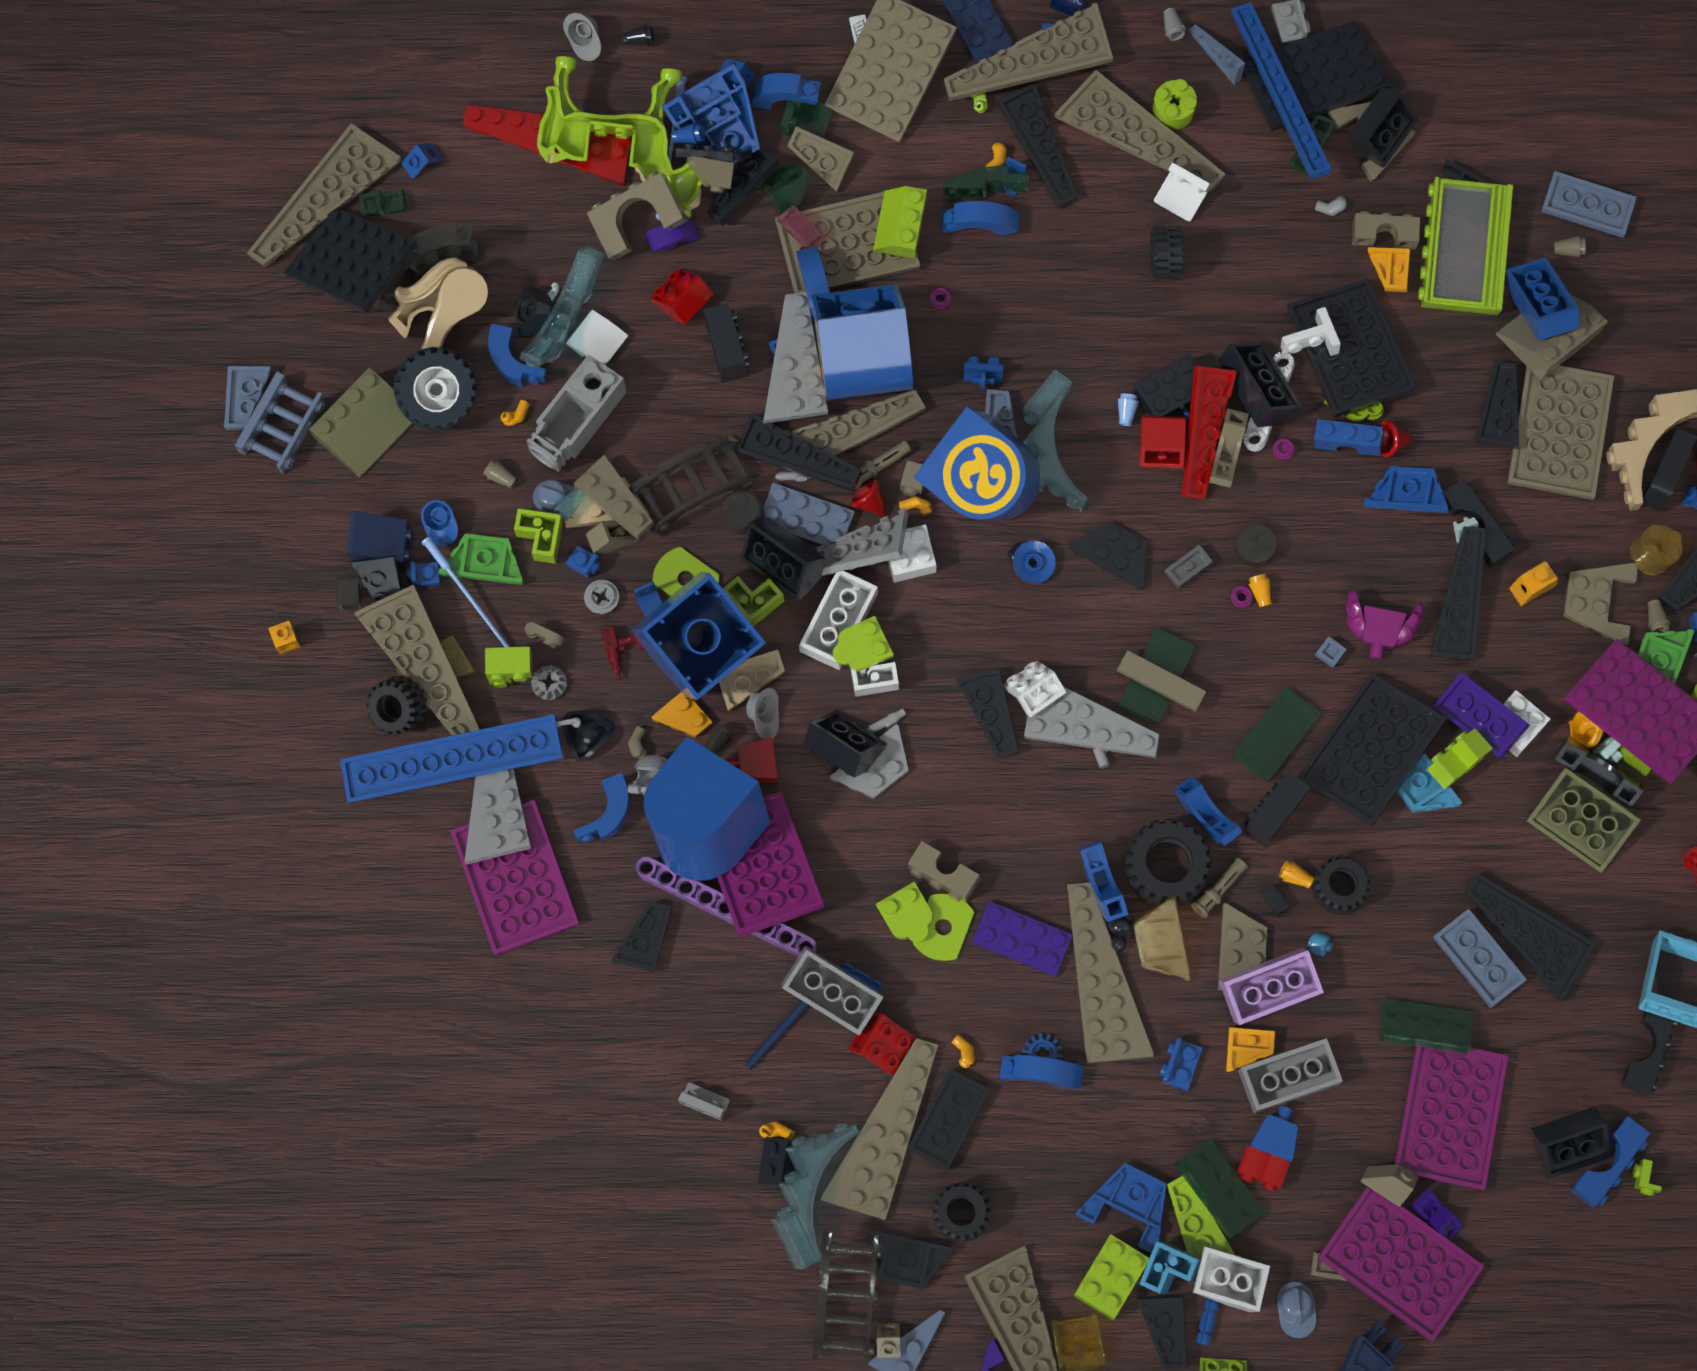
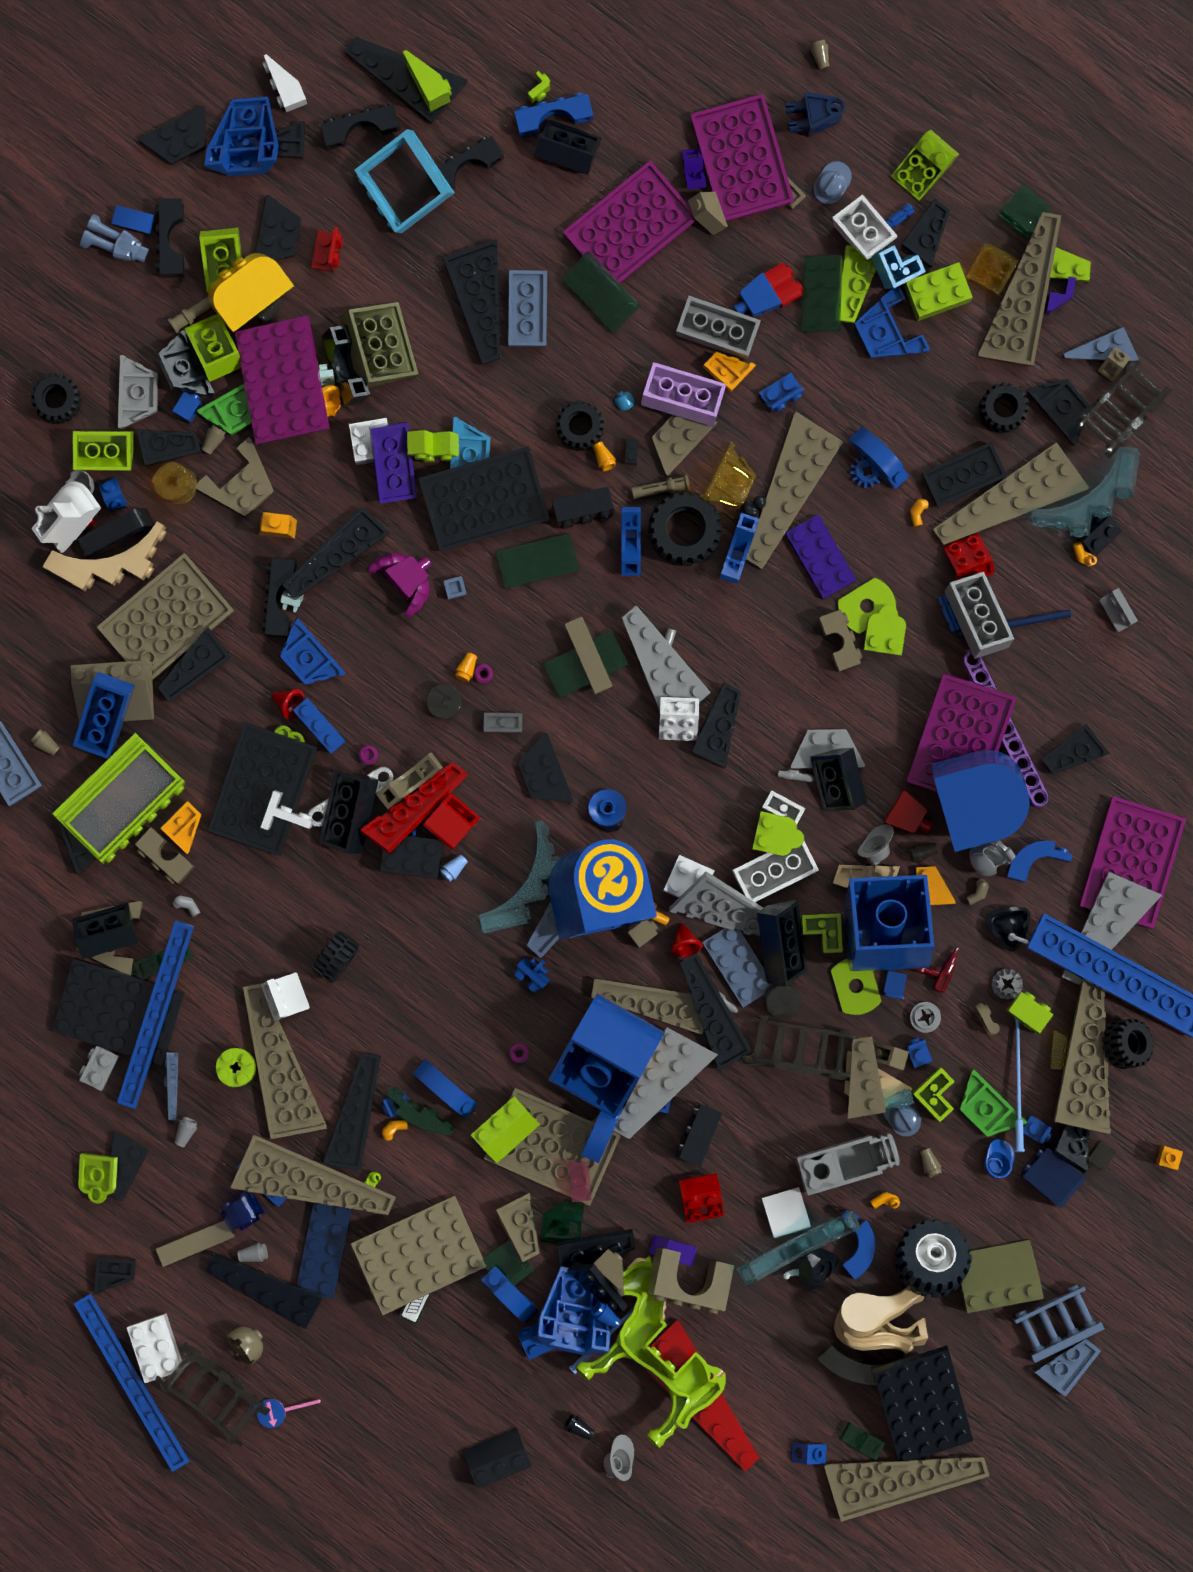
camera: 150 degrees left, 10 degrees up
(872, 471) = (667, 964): dark tan pin -> none

